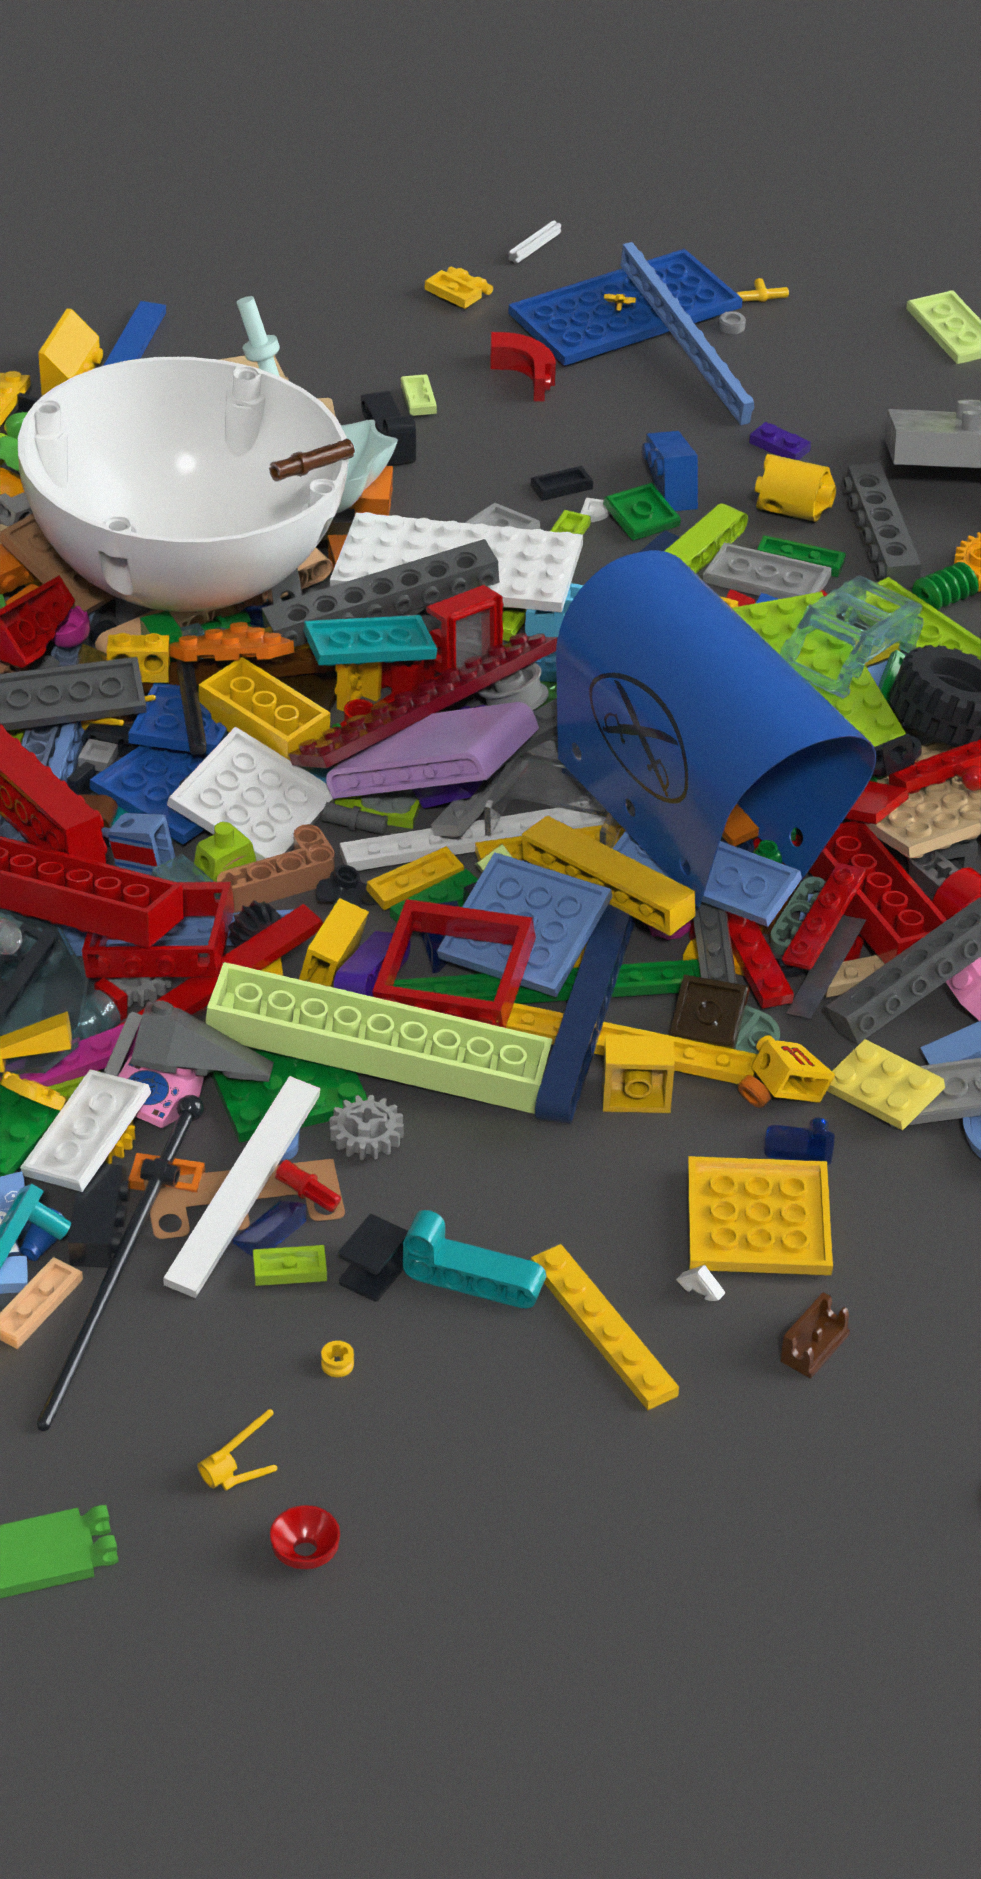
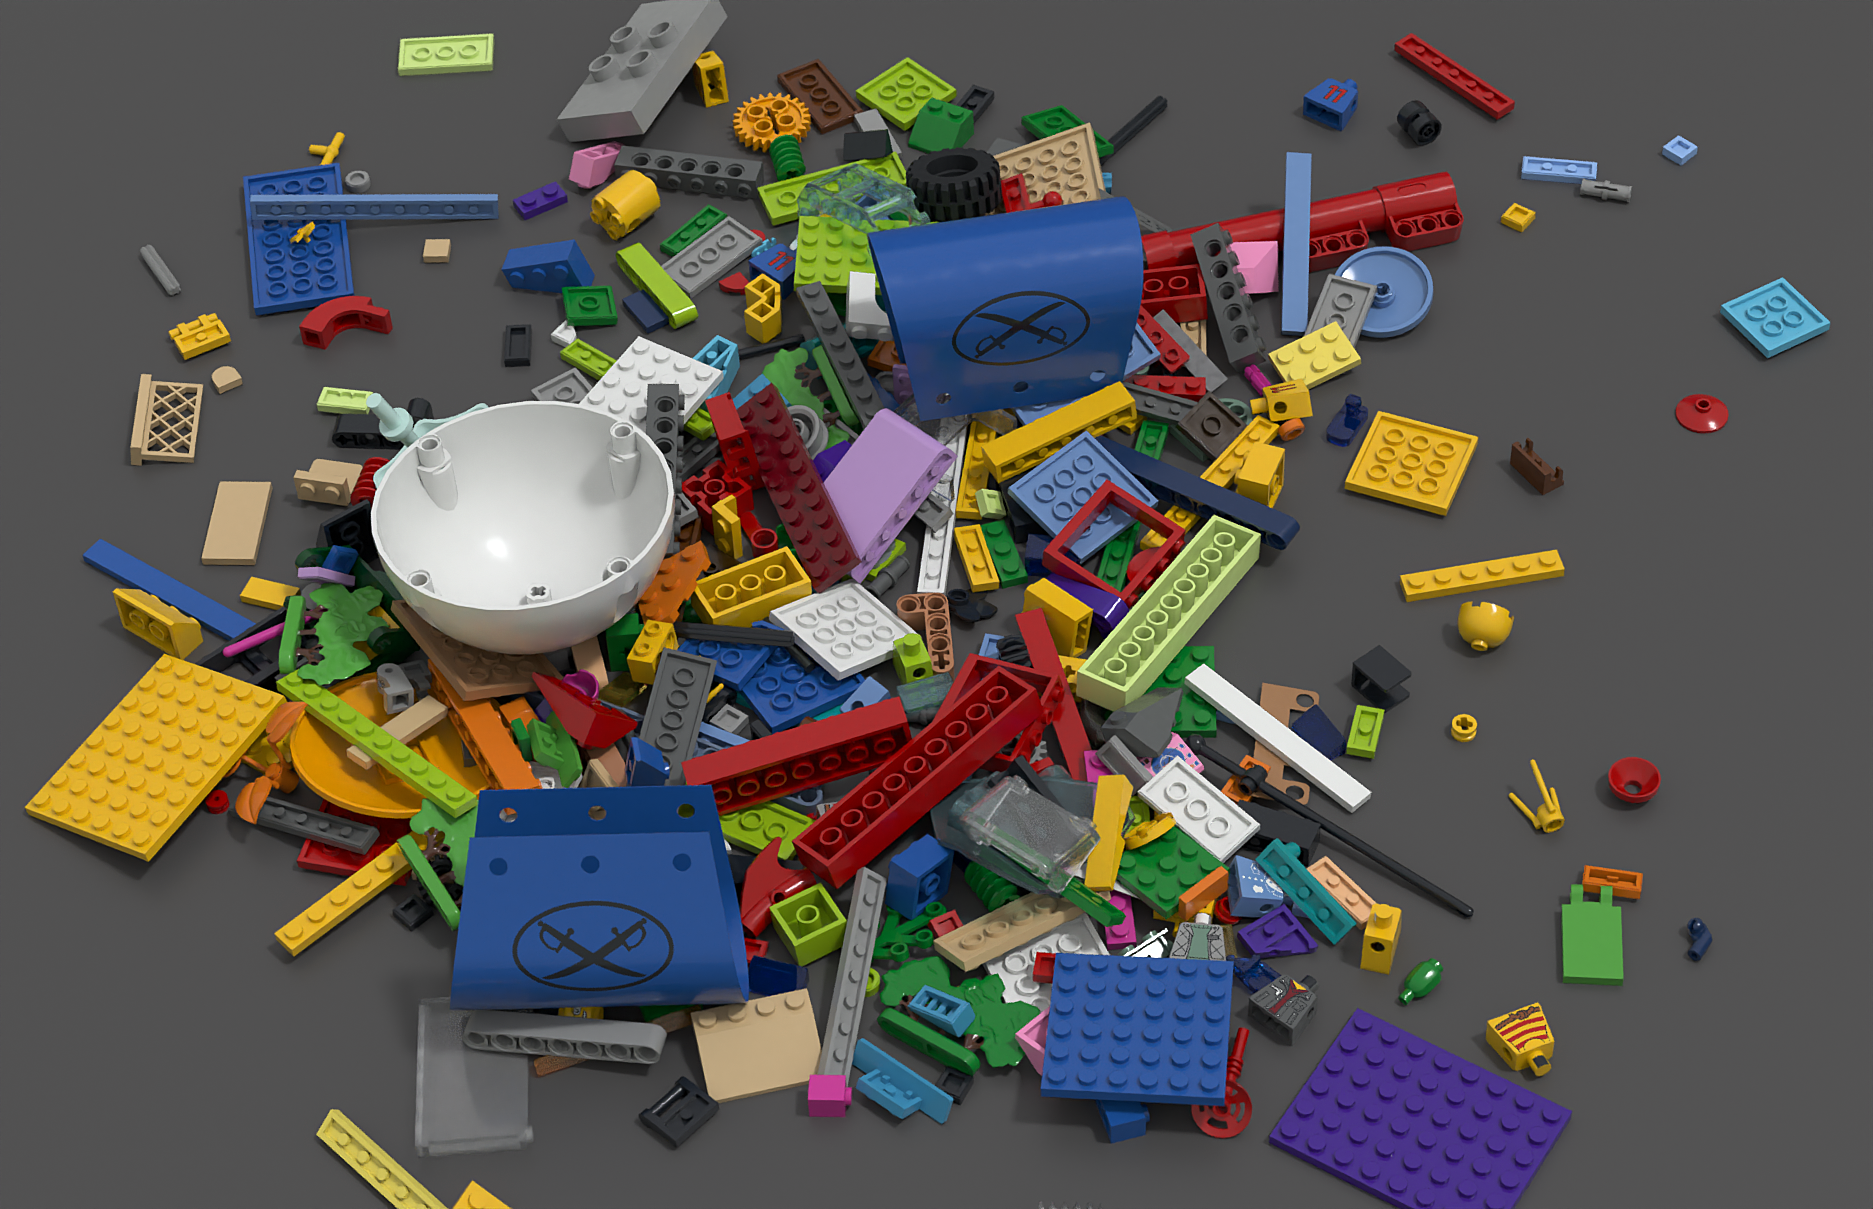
camera: 65 degrees left, 5 degrees up
(72, 1667) = (1701, 938): none -> dark blue arm
(137, 1578) = (1623, 883): none -> orange tile
(302, 463) = (595, 430): reddish brown pin -> none
(307, 1185) = (1292, 700): red axle -> none
(331, 284) = (145, 413): none -> tan fence
(366, 1127) = (1242, 652): light grey gear -> none
(369, 640) = (724, 493): teal plate -> none
(411, 319) = (226, 379): none -> tan tile
(466, 1267) = (1411, 626): teal beam -> none
(501, 1334) = (1484, 625): none -> yellow cylinder
(664, 396) = (437, 250): none -> tan tile
(702, 1282) = (1464, 510): white tile -> none
(829, 1045) = (1256, 378): none -> dark pink axle
(841, 449) = (594, 164): none -> bright pink slope

